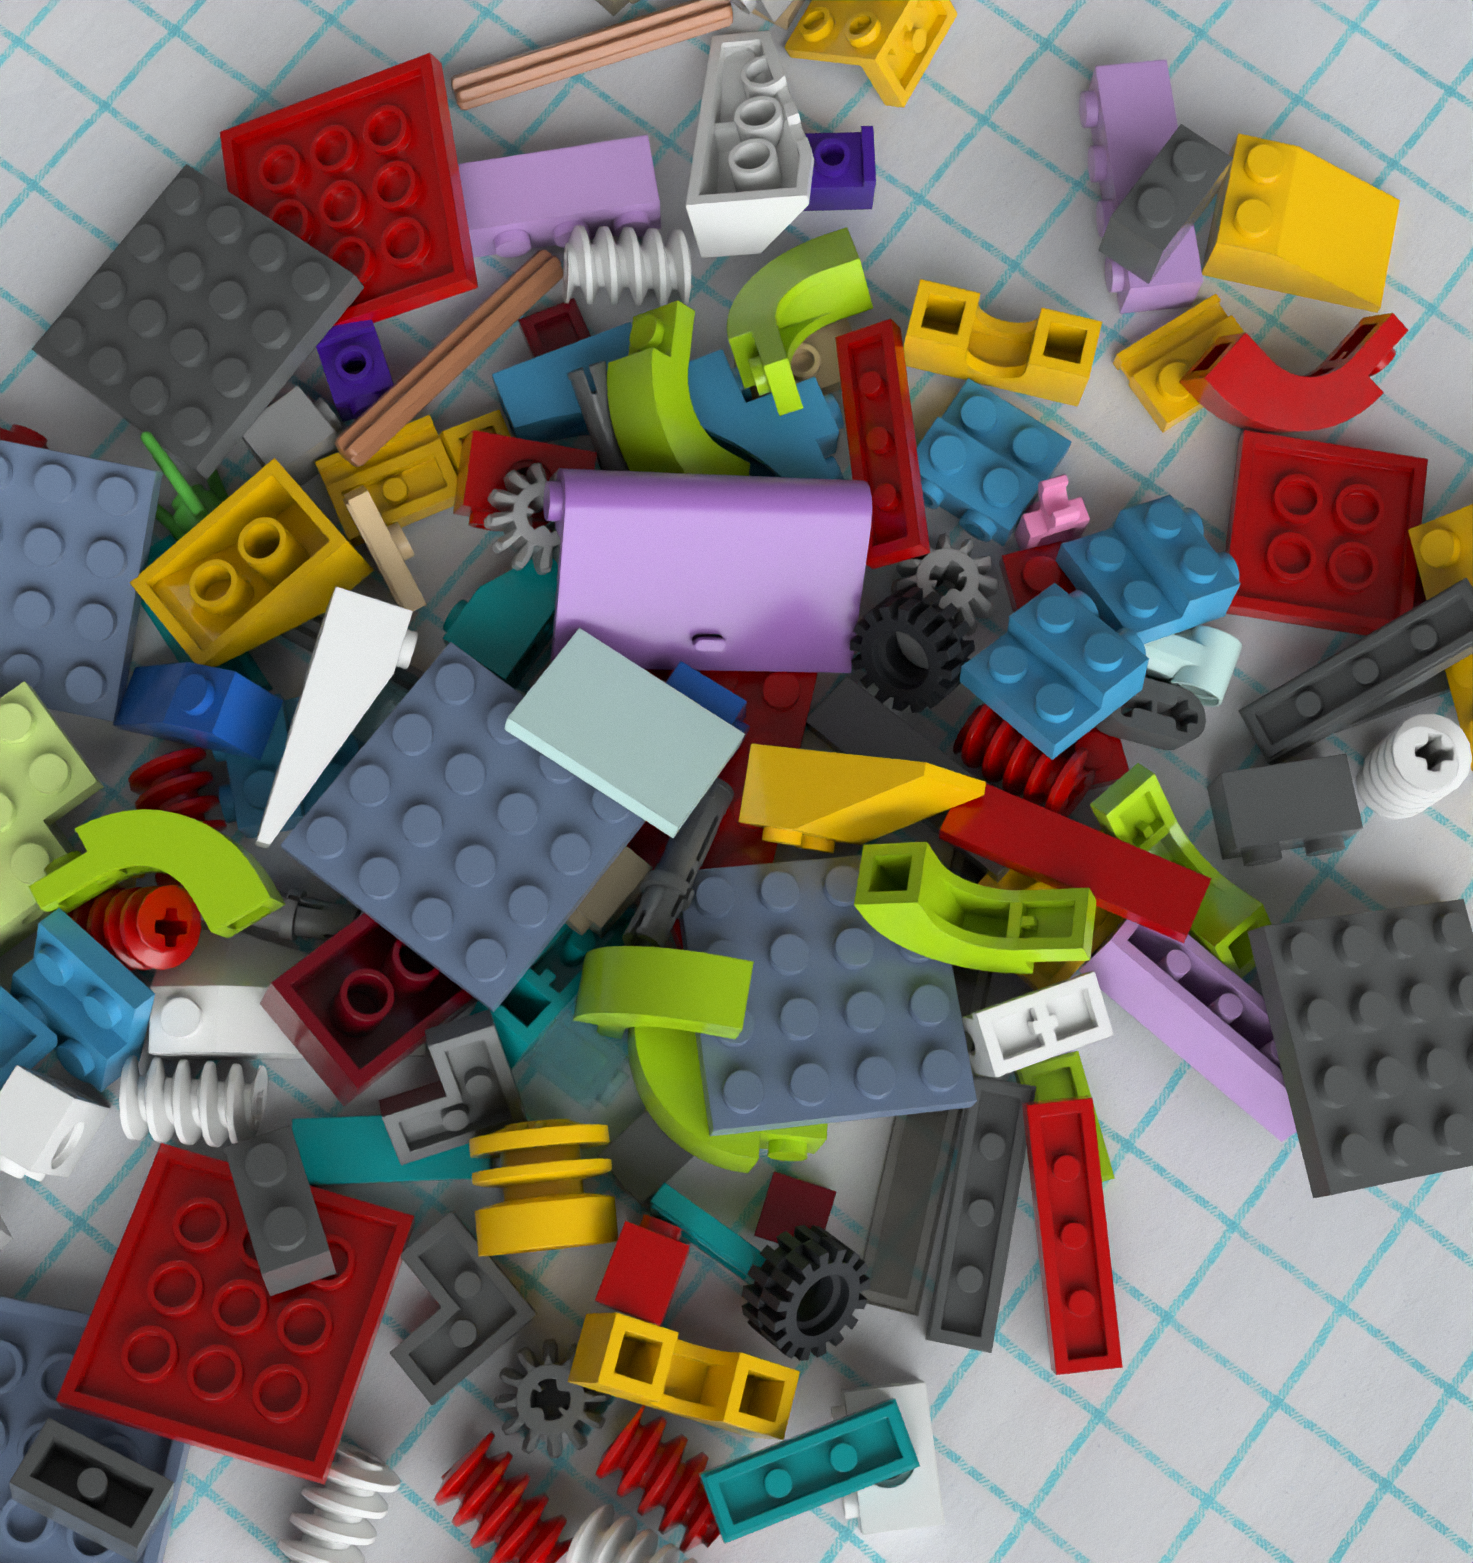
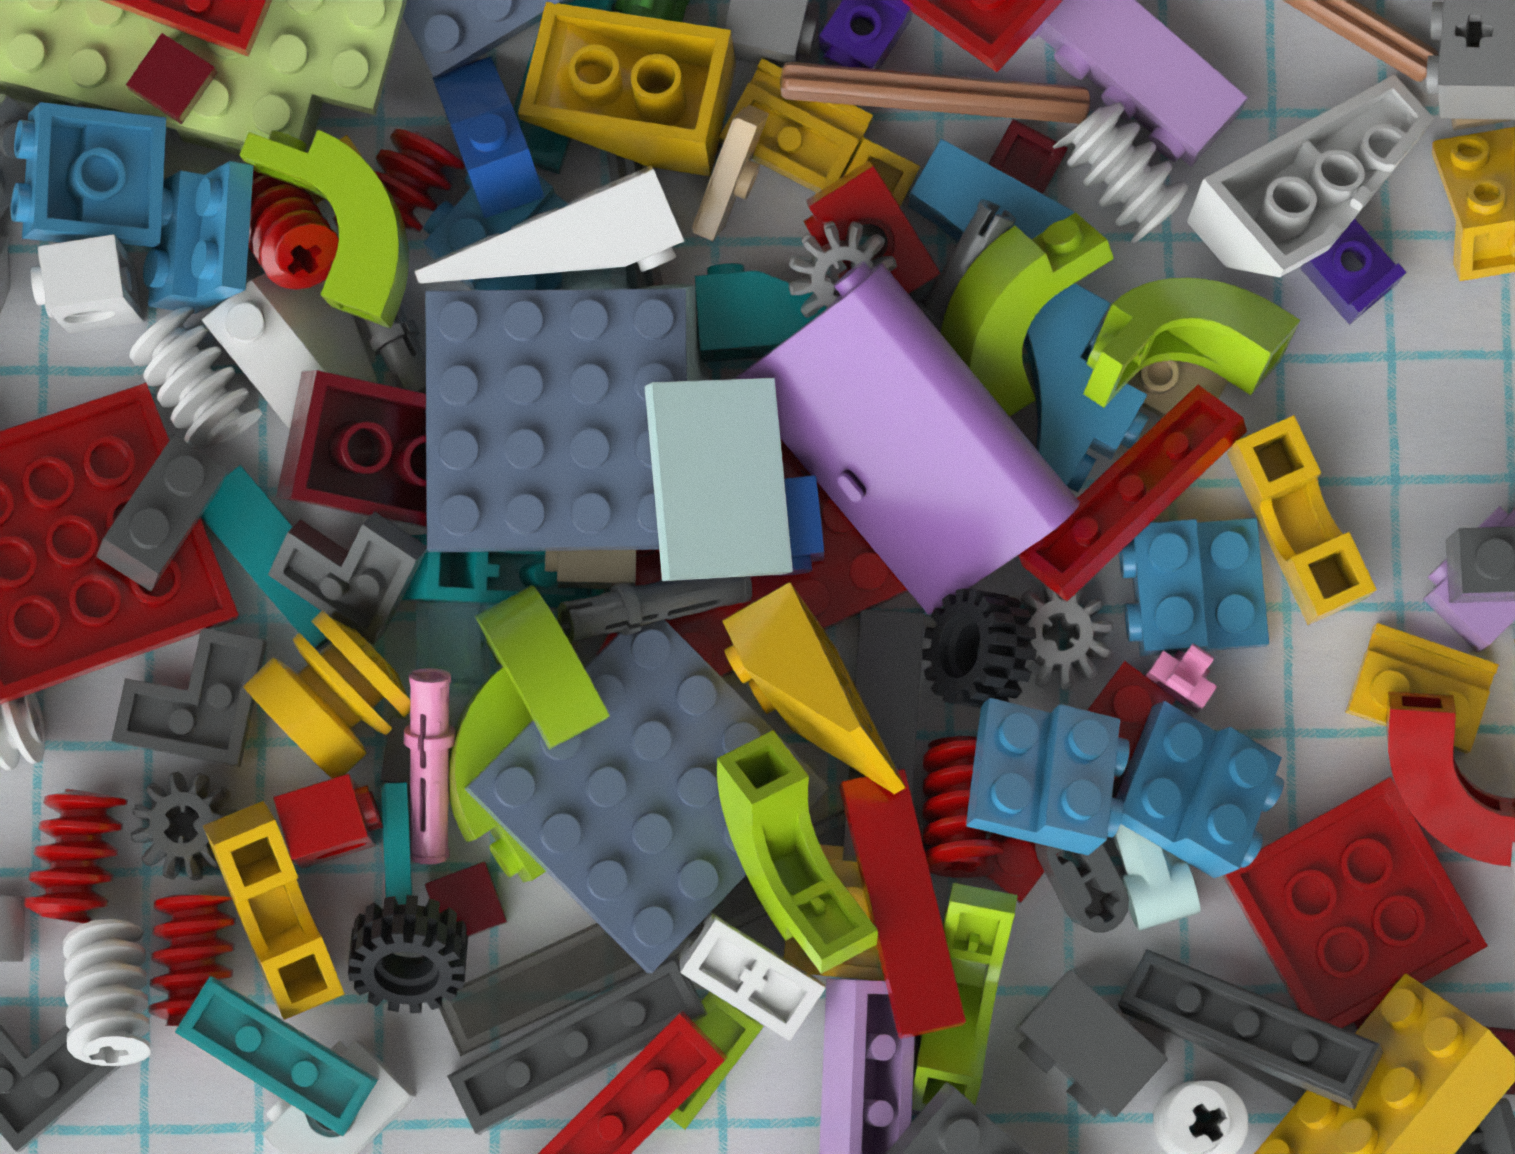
camera: 55 degrees right, 5 degrees up
(645, 1136) = (429, 743): none -> bright pink pin

